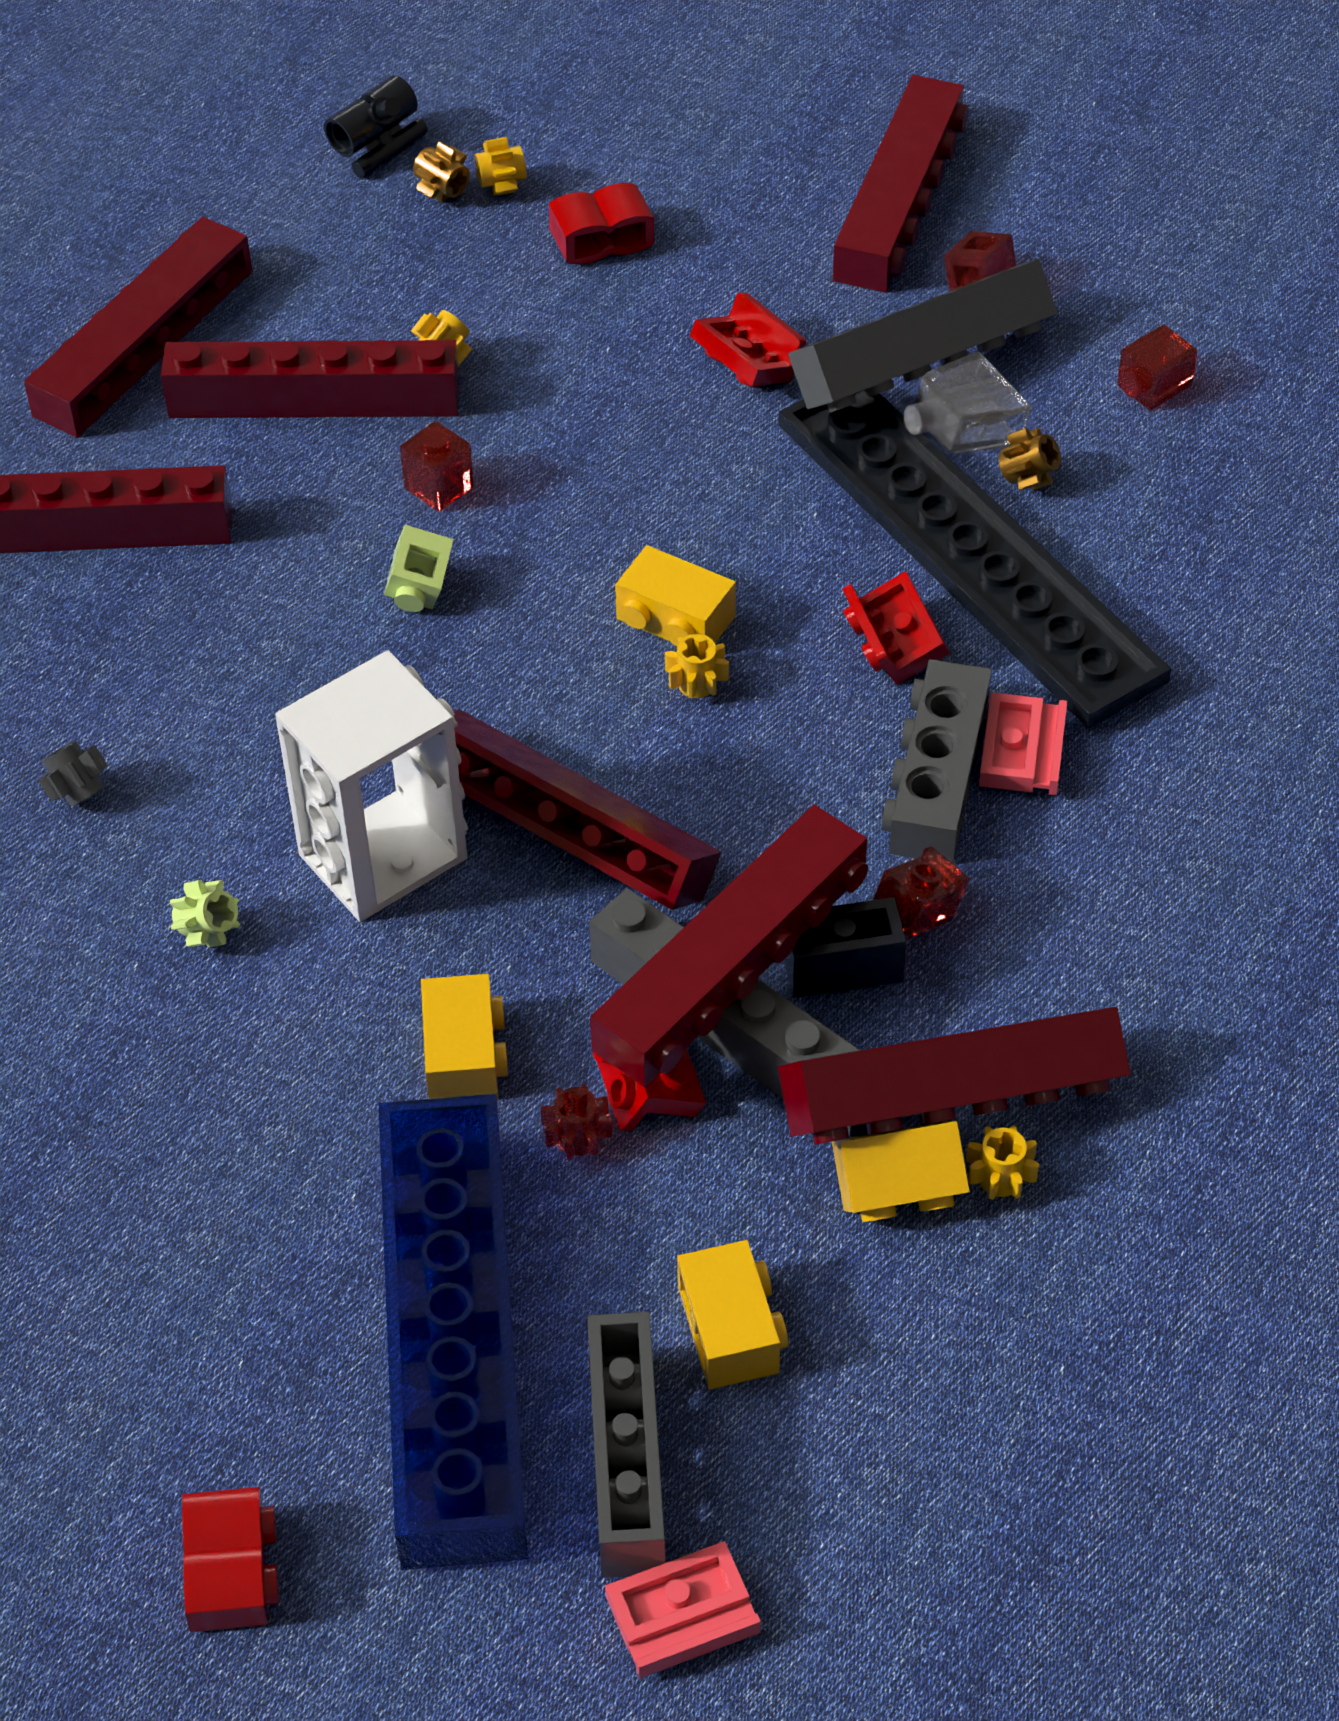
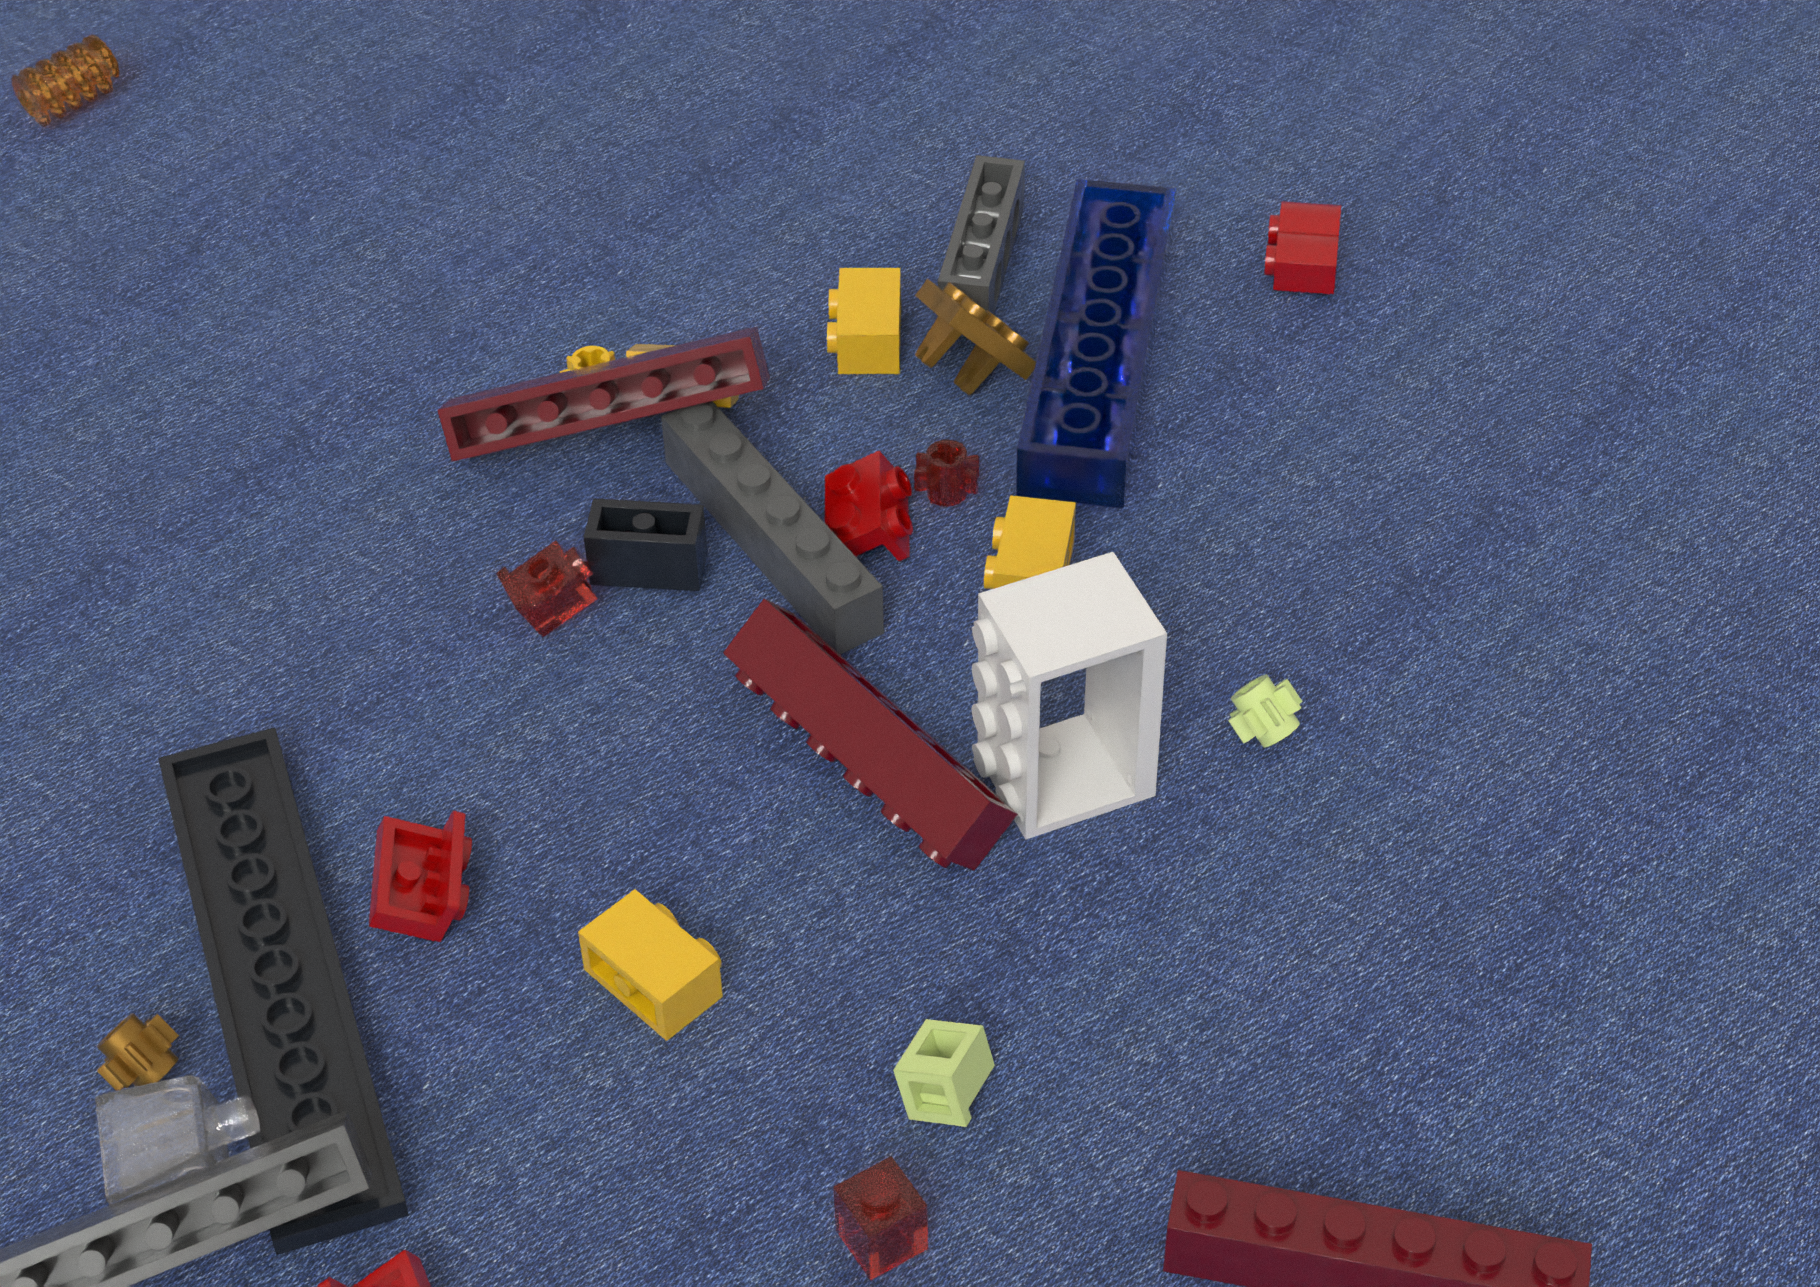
camera: 165 degrees left, 5 degrees down
(73, 773) = (1413, 894): dark grey gear -> none
(588, 1264) = (962, 316): none -> pearl gold plate
(682, 1609) = (949, 168): coral plate -> none
(697, 666) = (661, 874): yellow gear -> none
(729, 946) = (757, 494): dark red brick -> none
(939, 759) = (452, 721): dark grey brick -> none
(1022, 743) = (357, 727): coral plate -> none

